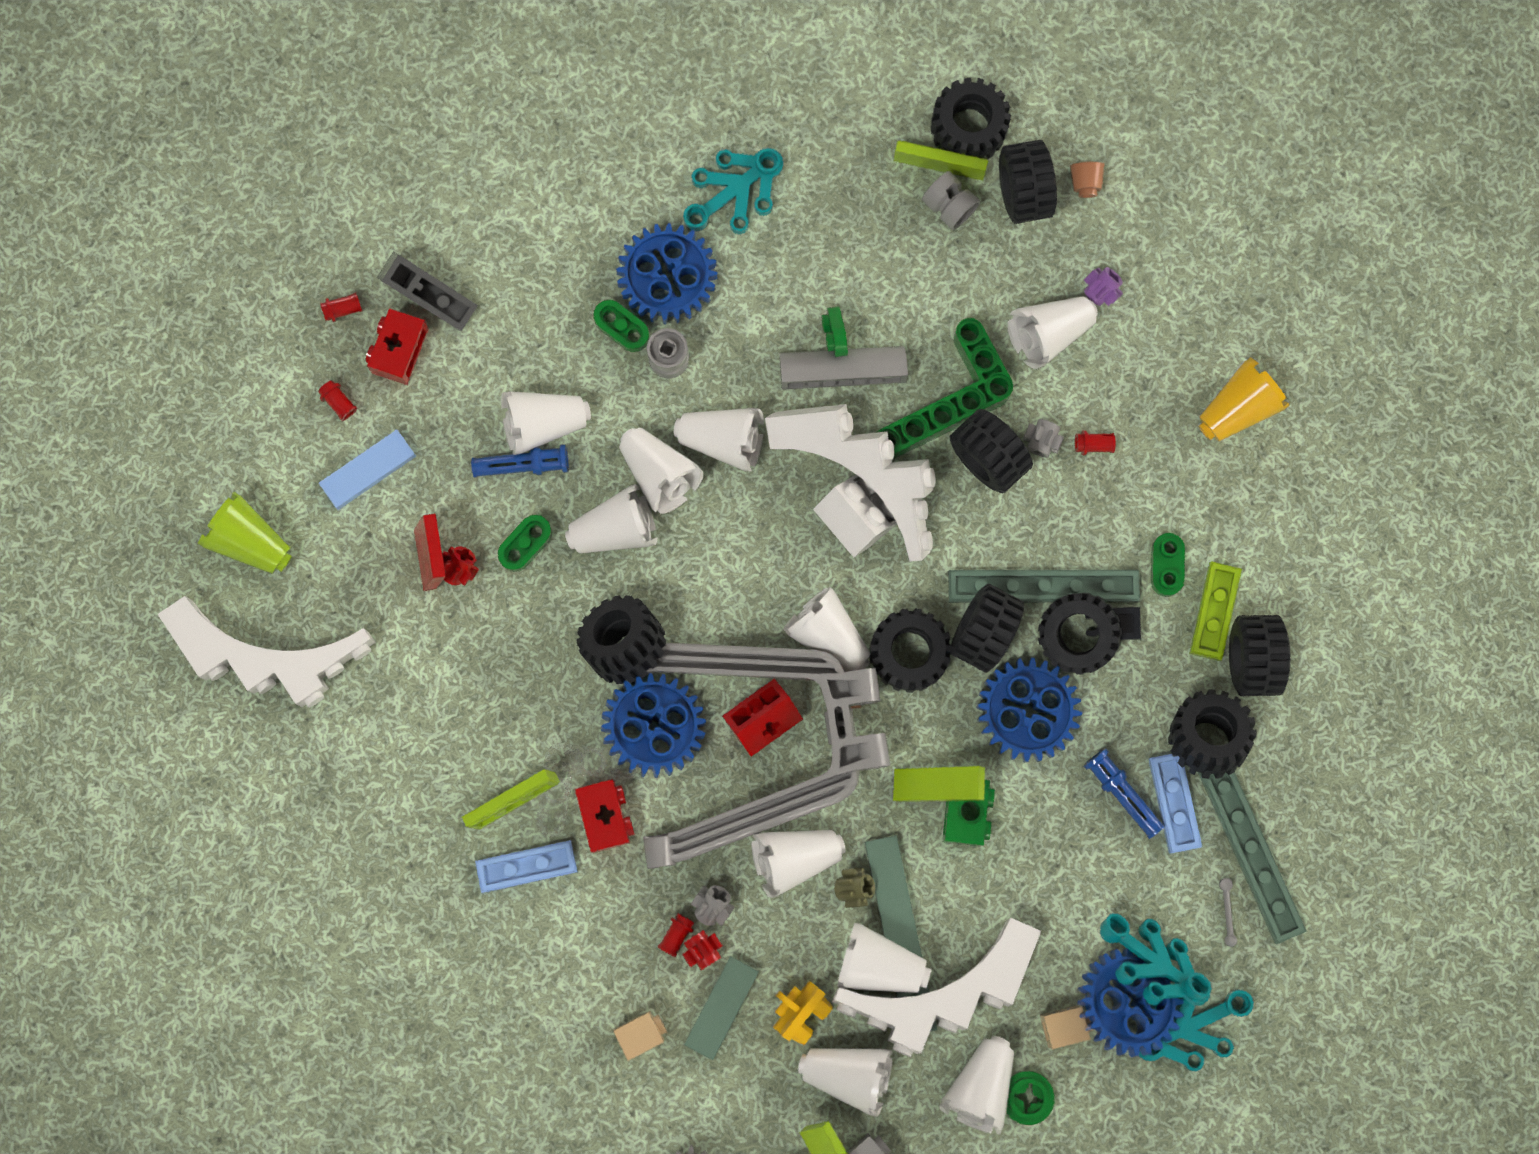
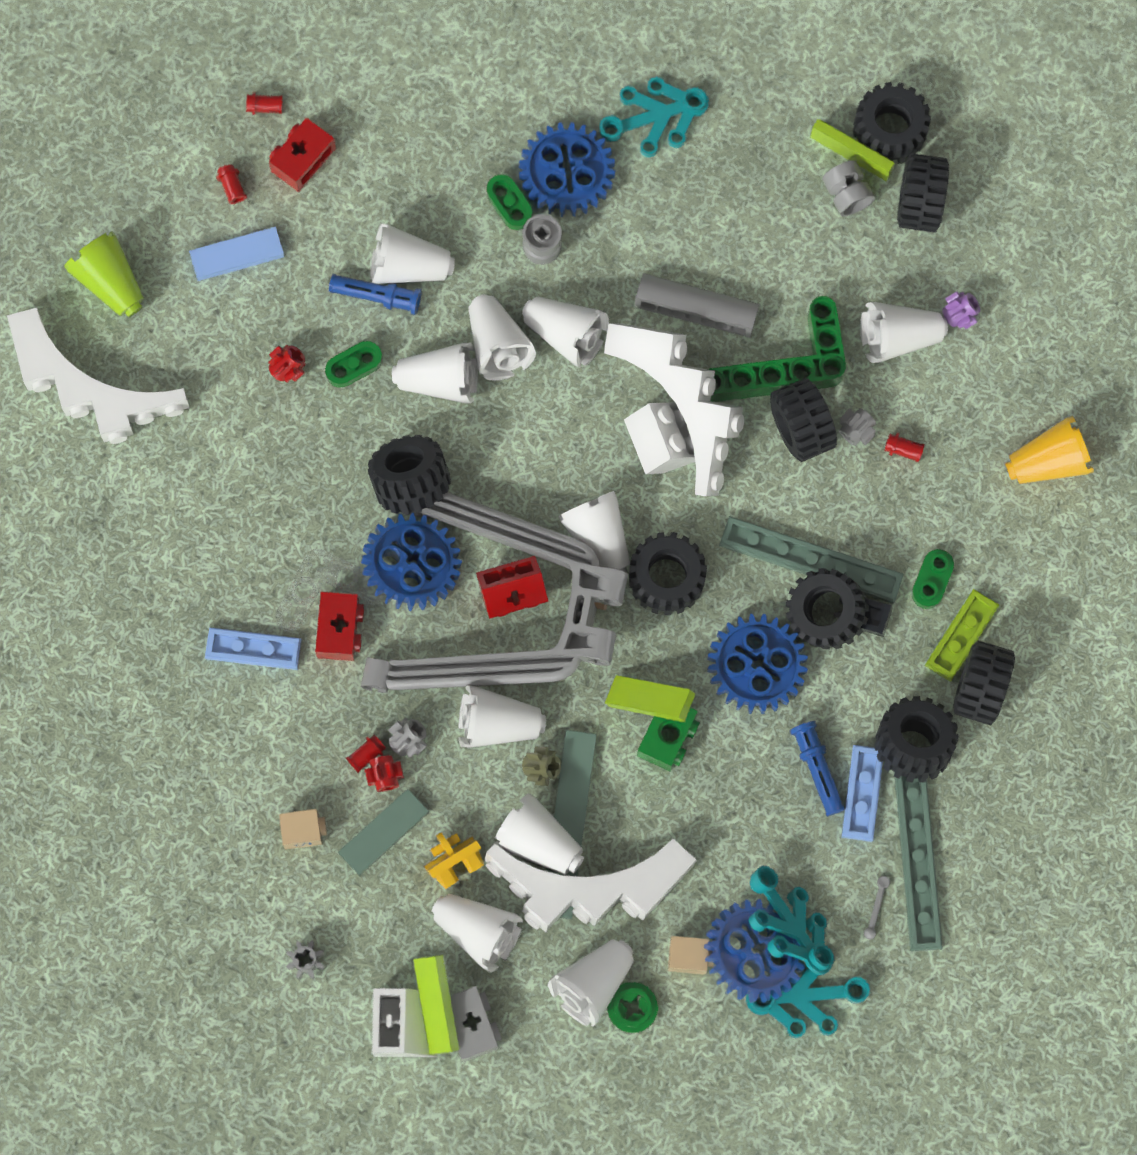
camera: 20 degrees right, 5 degrees down
(427, 291) = (346, 114): dark grey slope -> none
(429, 552) = (265, 341): red tile -> none
(511, 799) = (260, 582): lime tile -> none
(835, 331) = (699, 269): green plate -> none
(987, 628) = (743, 574): black tyre -> none
(1087, 178) = (982, 209): nougat hat -> none

